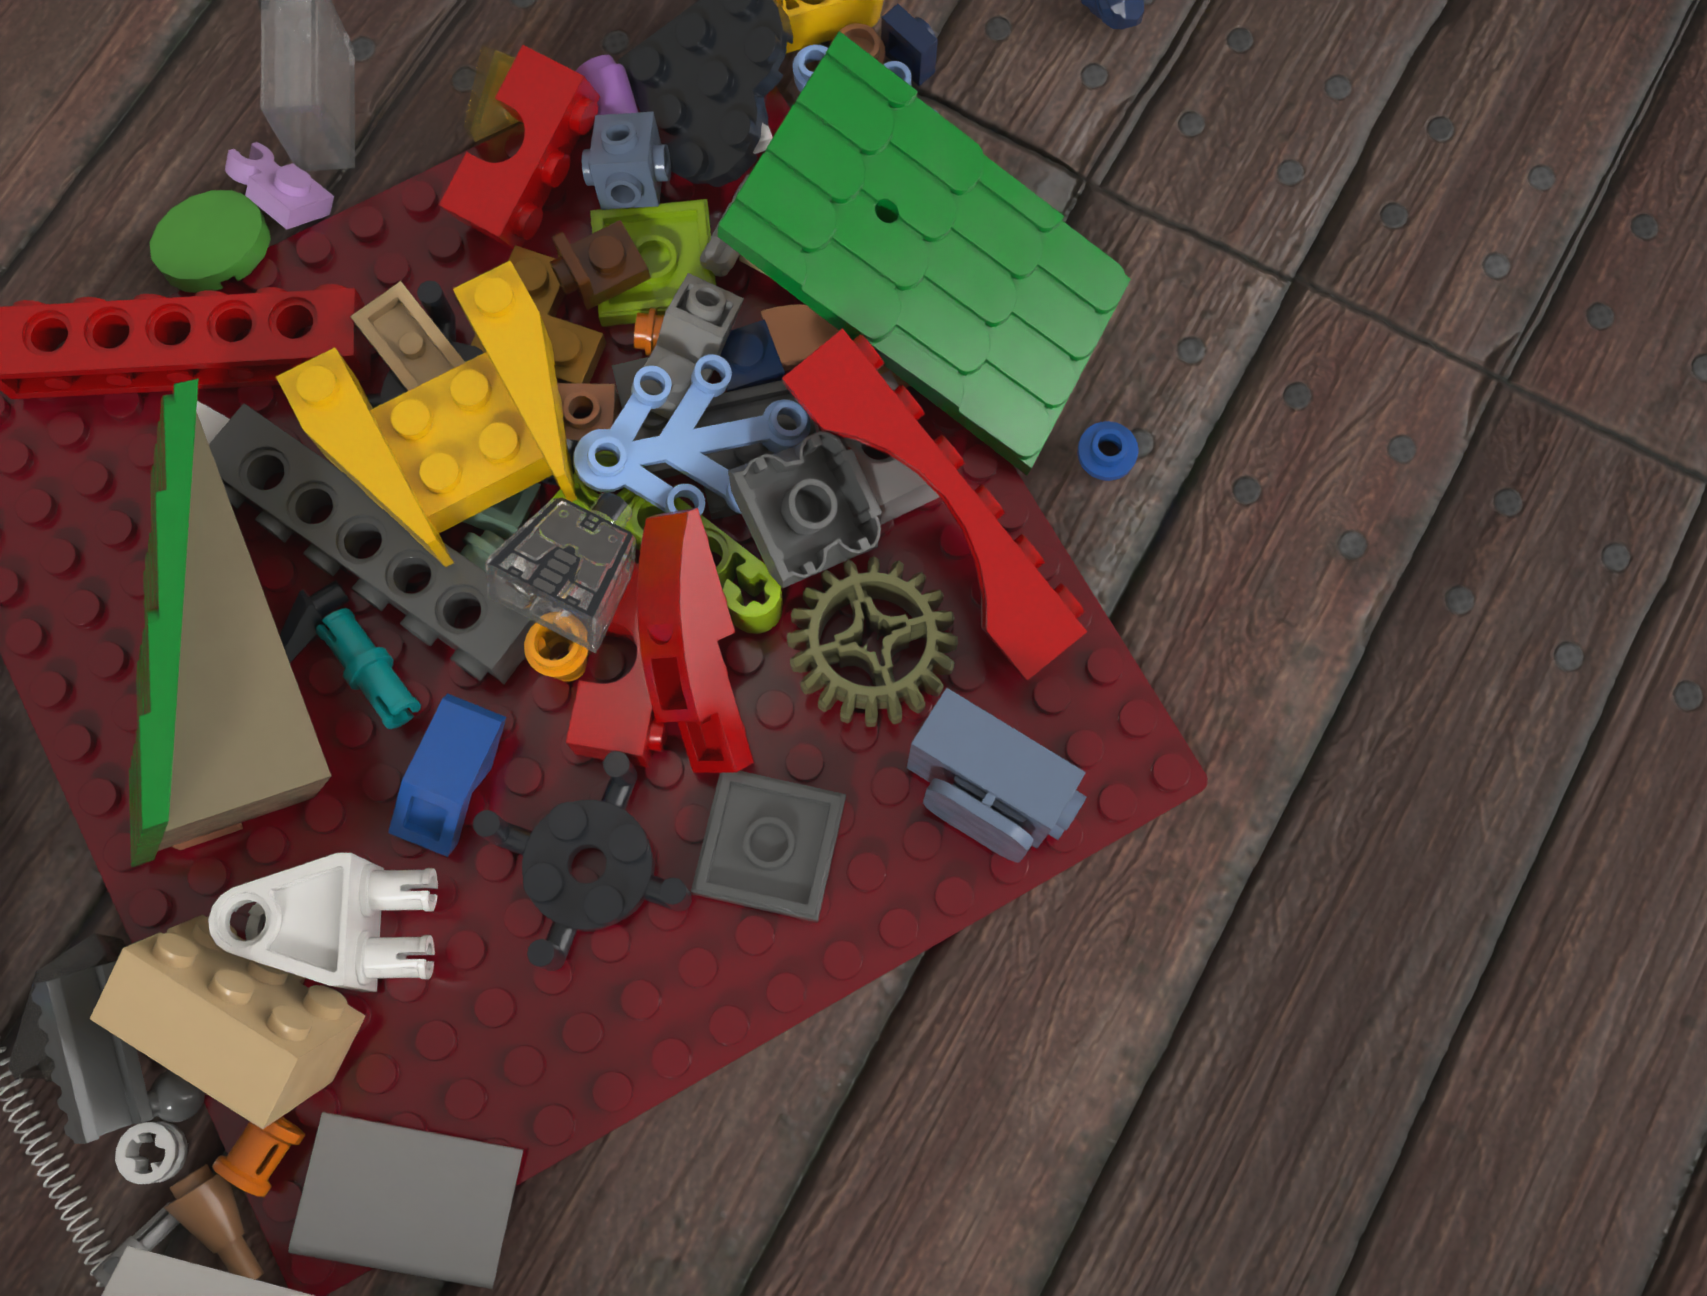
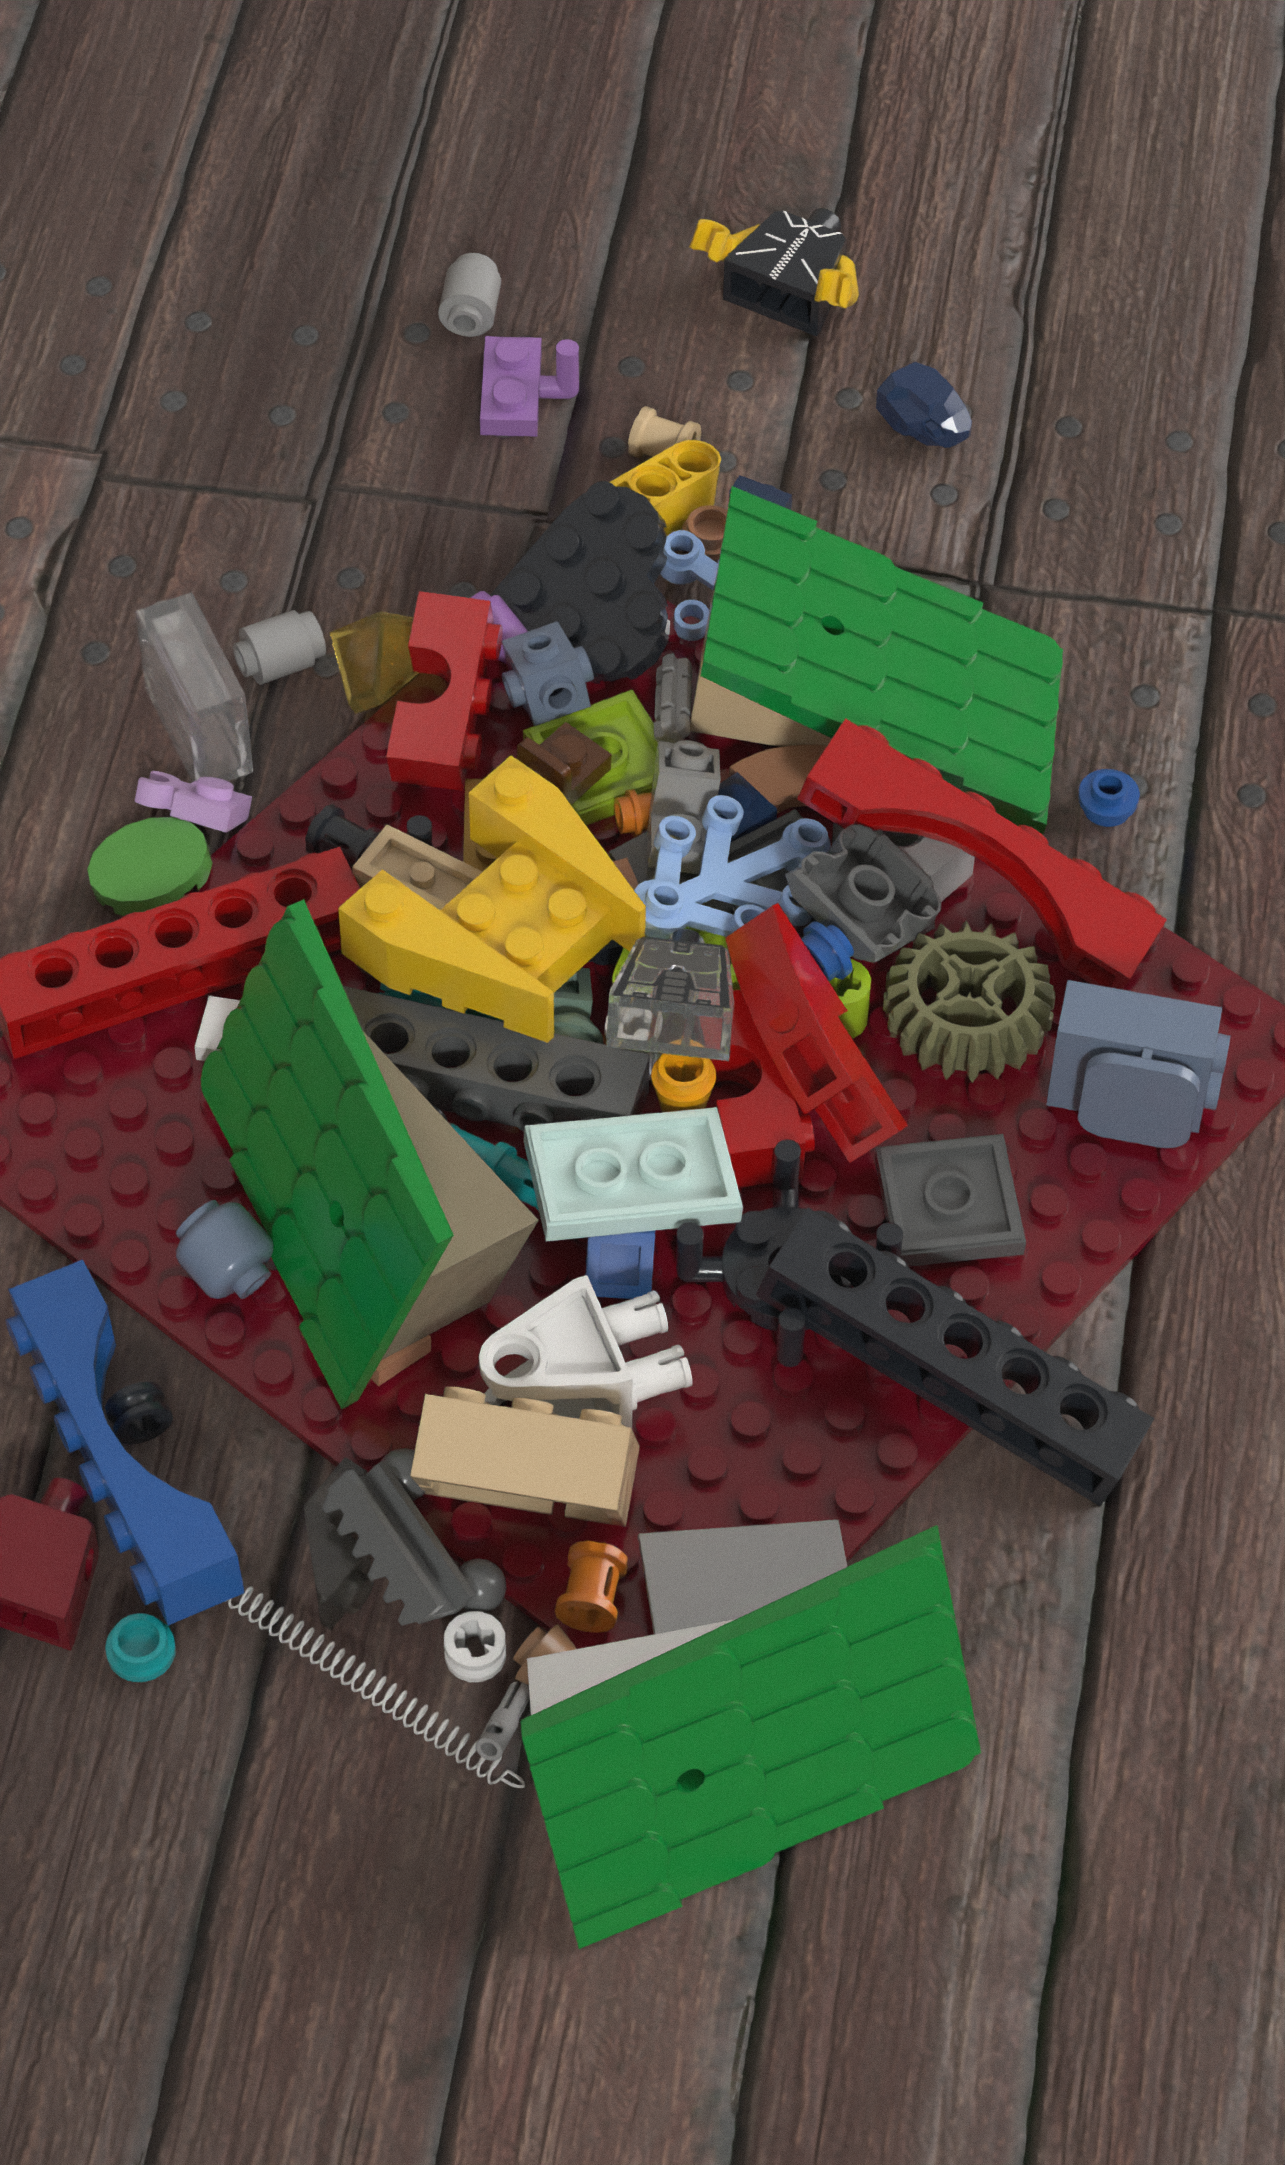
camera: 20 degrees left, 20 degrees down
(84, 672) = (224, 1250): none -> sand blue head
(374, 269) = (340, 833): none -> black bush
(418, 49) = (279, 646): none -> light grey brick
(465, 734) = (632, 1174): none -> light aqua tile
(738, 562) = (829, 949): none -> blue plate
(786, 1174) = (968, 1388): none -> black brick

